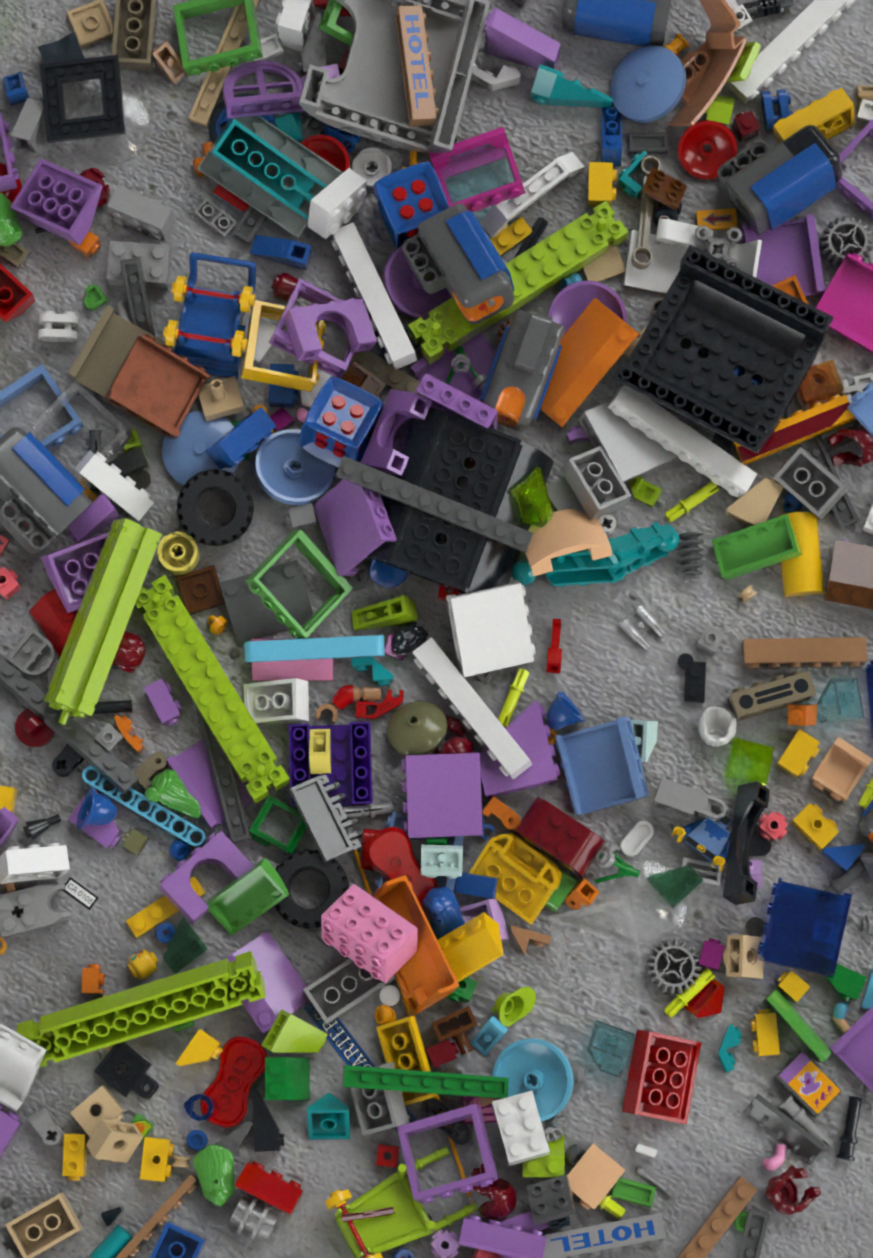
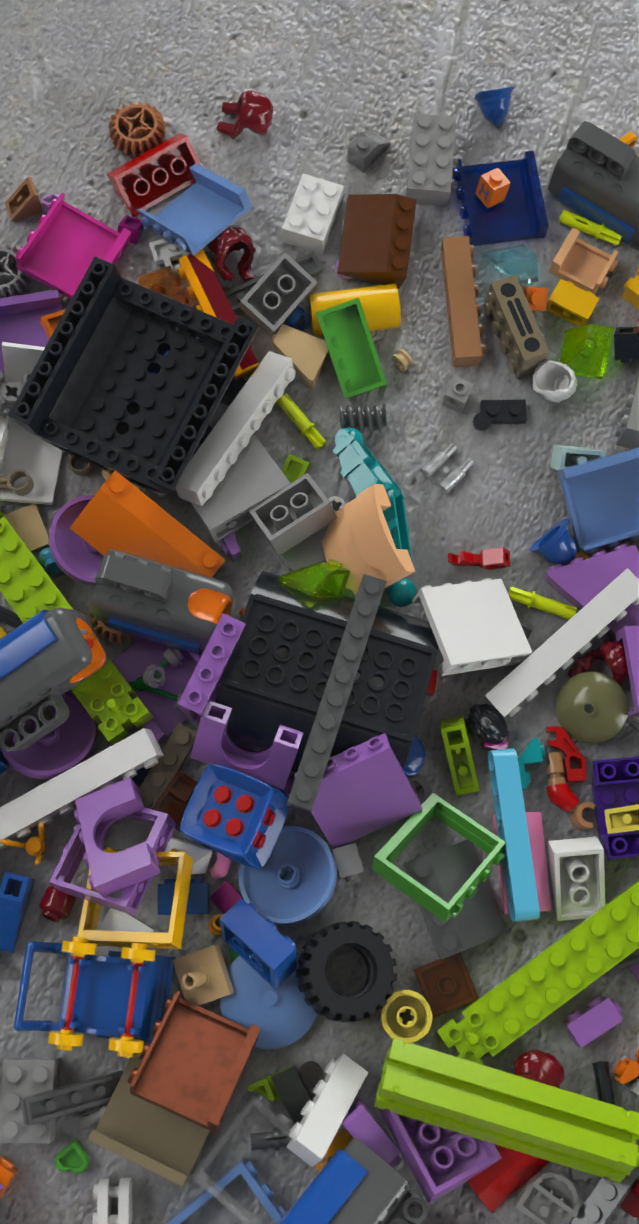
camera: 100 degrees left, 5 degrees down
(218, 625) = (489, 959): light orange tile -> none
(331, 269) = (34, 846): none -> light orange plant

